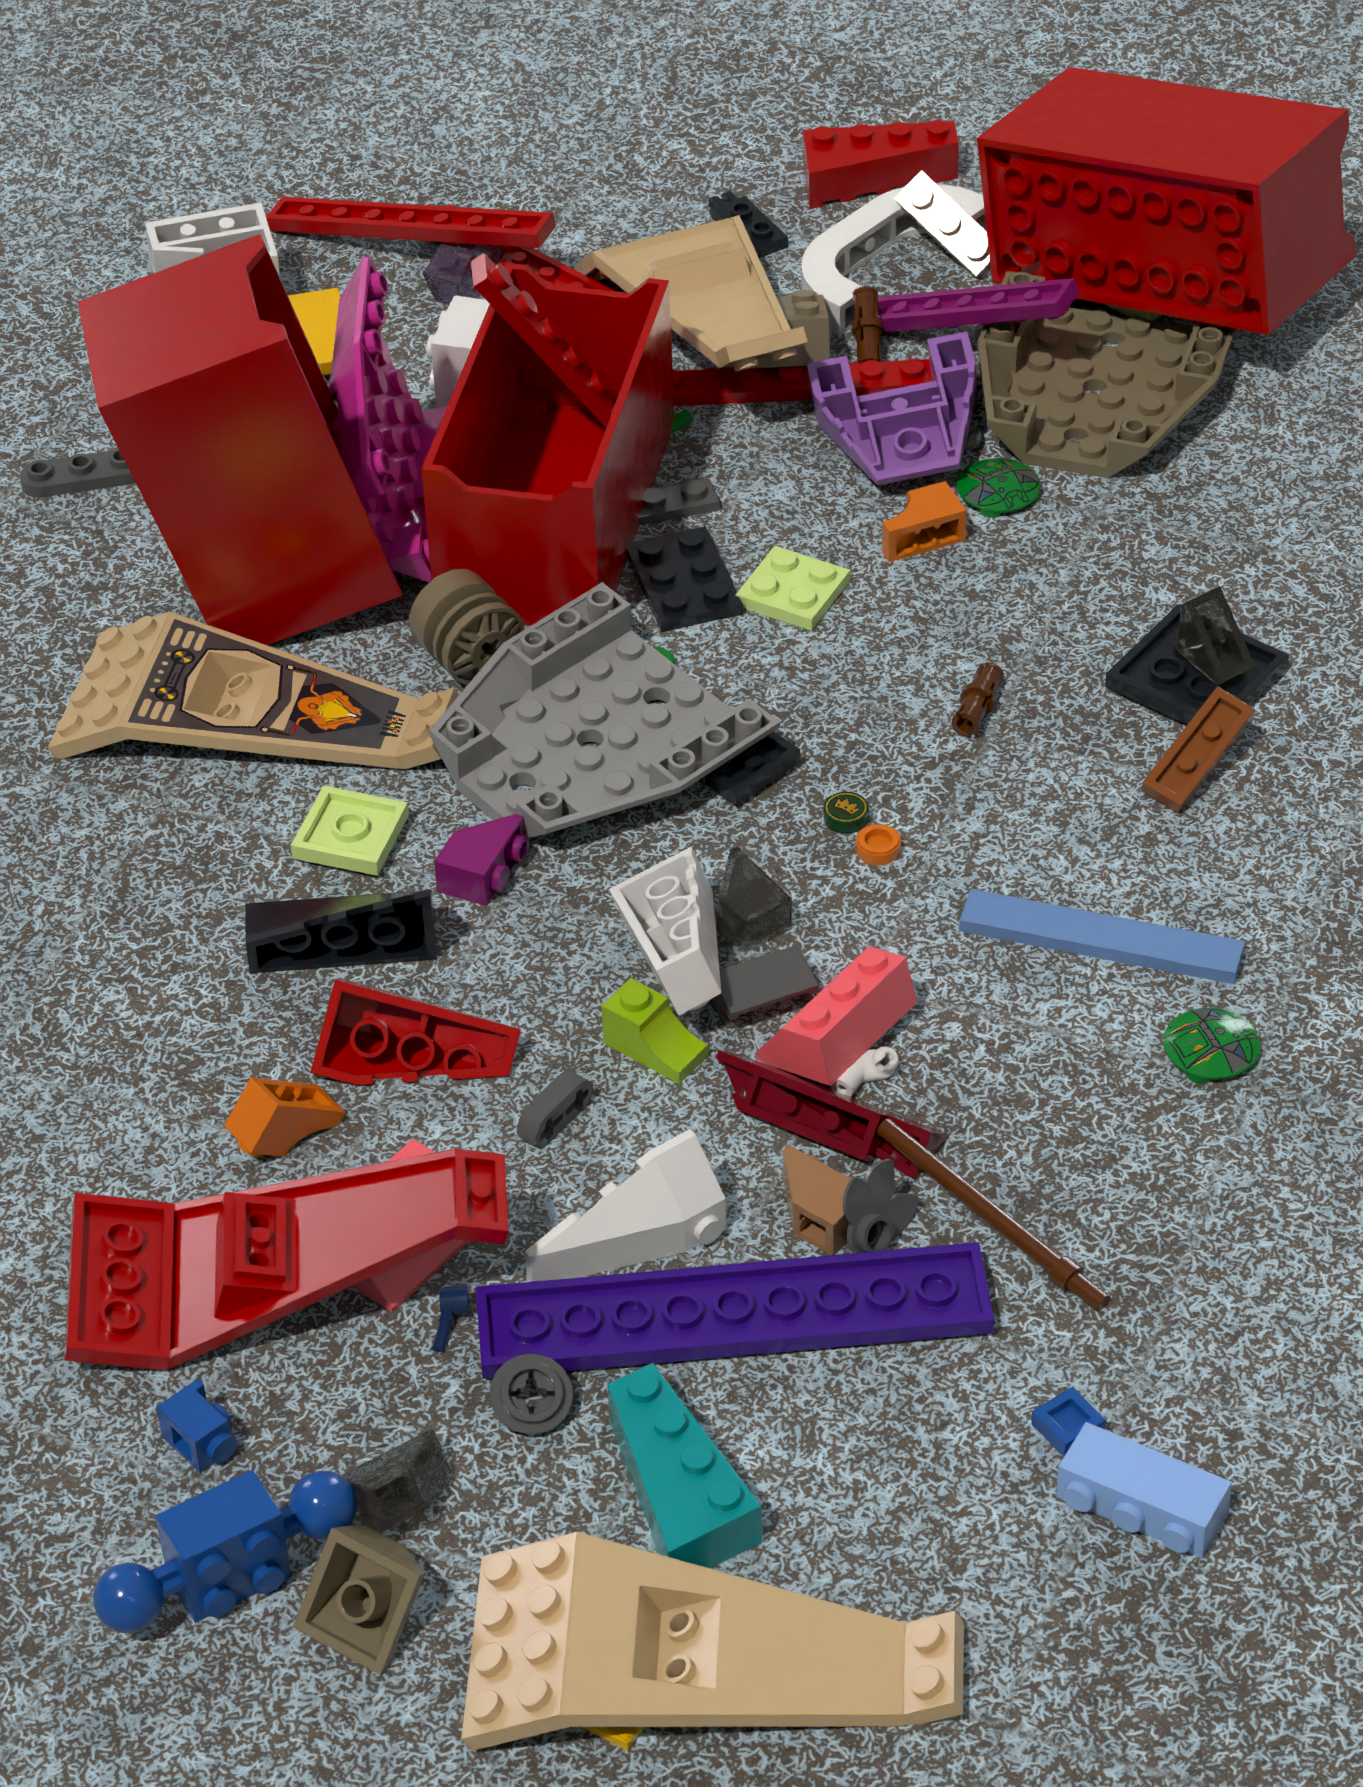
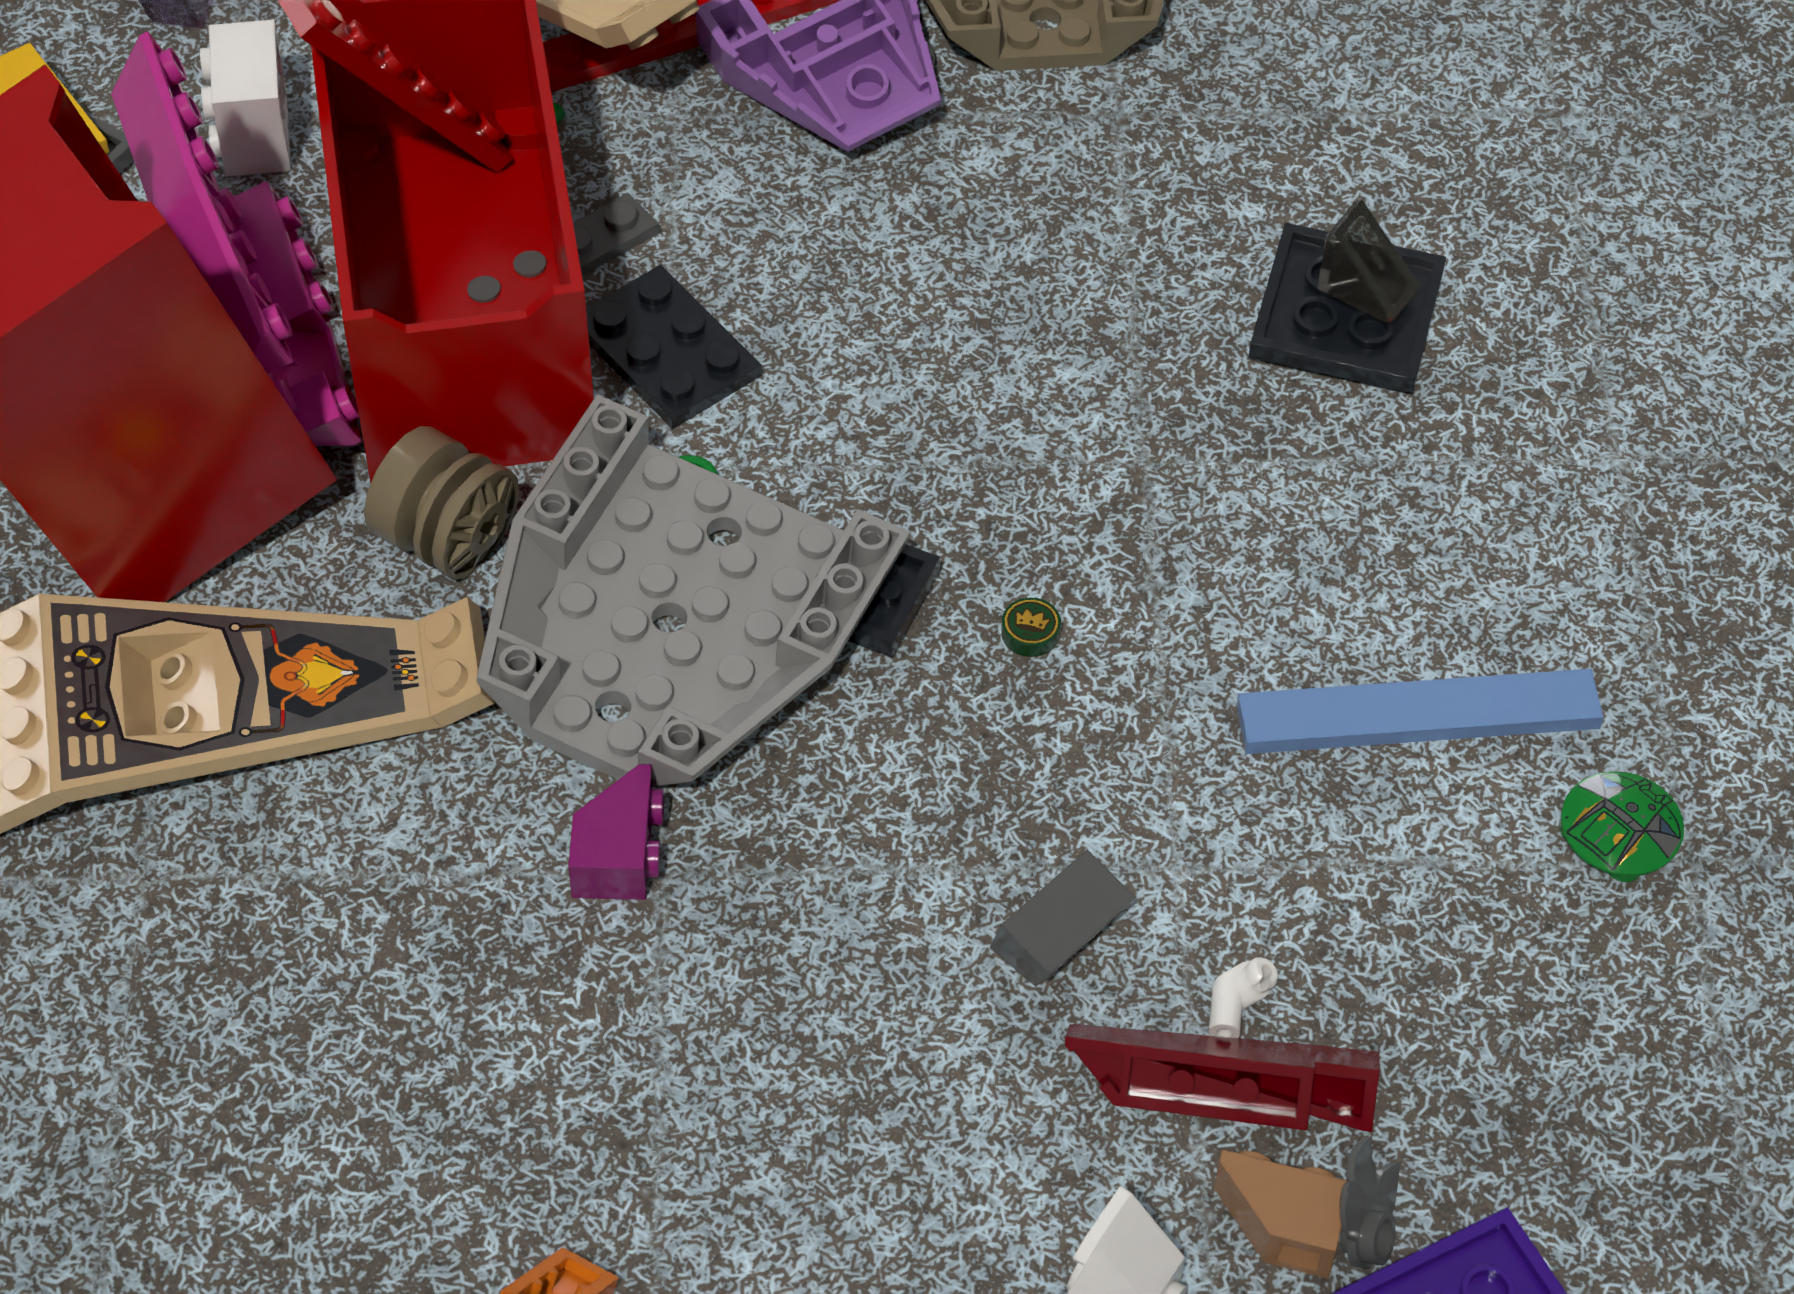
camera: 25 degrees left, 10 degrees up
(340, 931) = (487, 1003): black wedge -> none
(350, 830) = (421, 845): yellowish green plate -> none
(396, 1036) = (625, 1141): red wedge -> none
(554, 1108) = (889, 1184): dark grey beam -> none
(646, 1029) = (957, 1031): lime arch -> none
(674, 927) = (922, 875): white wedge -> none
(751, 904) = (986, 798): clear smoke slope -> none
(793, 587) = (808, 321): yellowish green plate -> none
(843, 1018) = (1179, 934): coral slope -> none
(878, 844) = (1091, 661): orange tile -> none
(929, 522) = (935, 184): orange arch -> none
(977, 699) = (1112, 420): reddish brown pin -> none
(998, 486) = (986, 111): green dish -> none
(1062, 1270) = (1618, 1209): reddish brown bar -> none
(1198, 750) = (1413, 421): dark orange plate -> none

